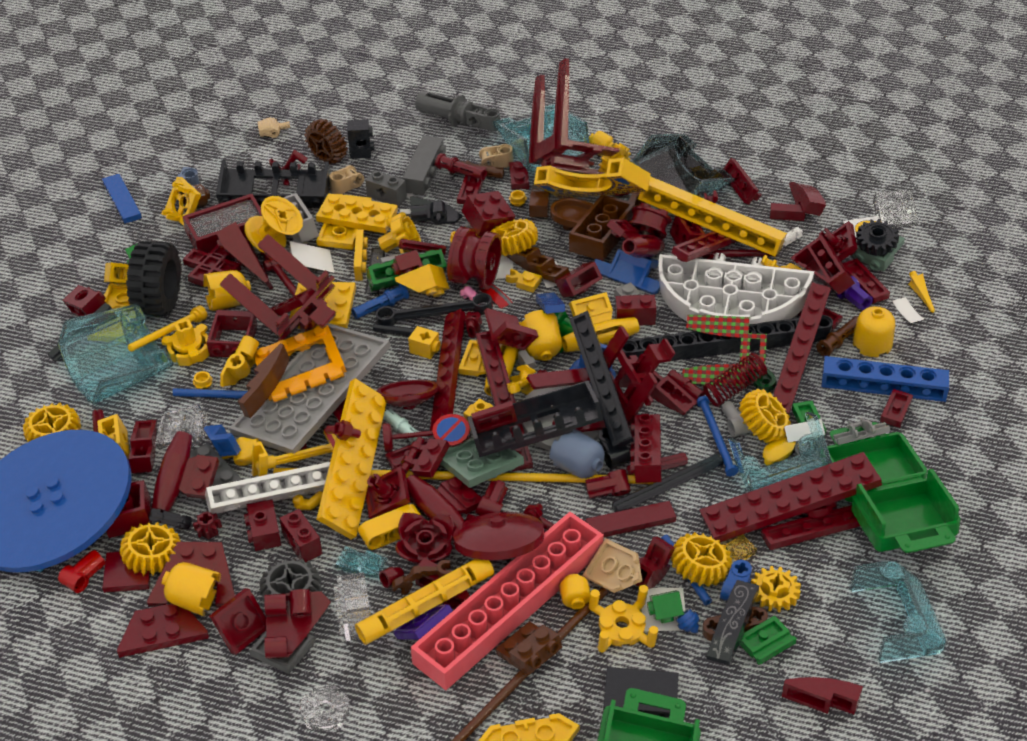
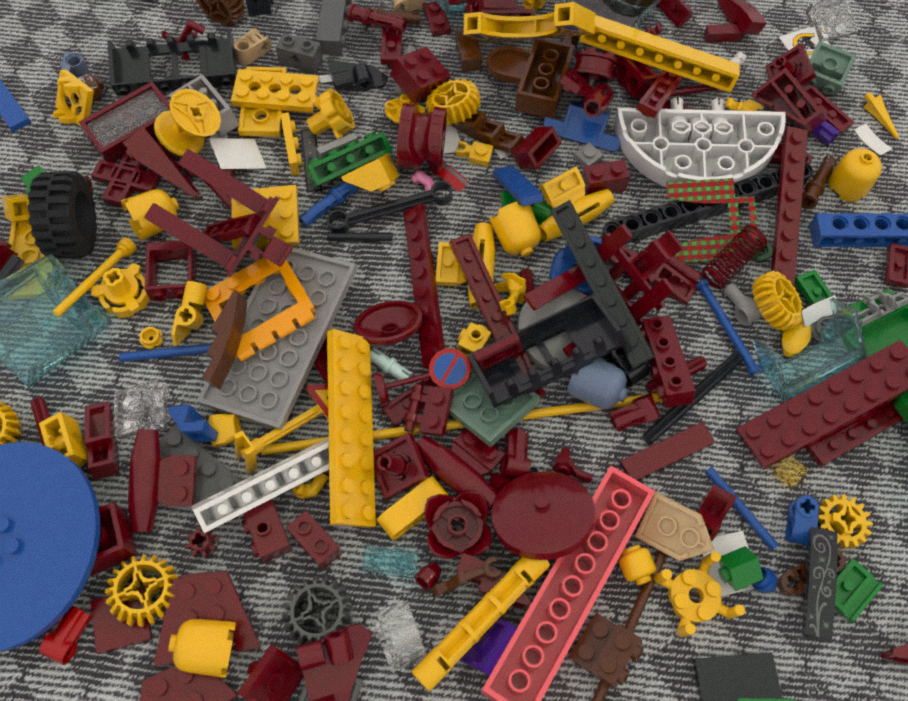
camera: 15 degrees left, 20 degrees up
(170, 518) = (155, 542): black axle -> none
(343, 430) = (335, 405): dark red piece -> none
(406, 262) = (351, 157): dark red brick -> none
(420, 246) = (356, 128): dark red axle -> none
(424, 342) = (389, 251): yellow brick -> none
(473, 321) = (435, 216): dark red piece -> none
(507, 330) = (482, 232): dark red bracket -> none
(517, 198) = (443, 48): yellow plate -> none
(524, 358) = (506, 262): light grey plate -> none
(701, 559) = (761, 499): yellow gear -> none
(877, 237) = (833, 59): black gear -> none

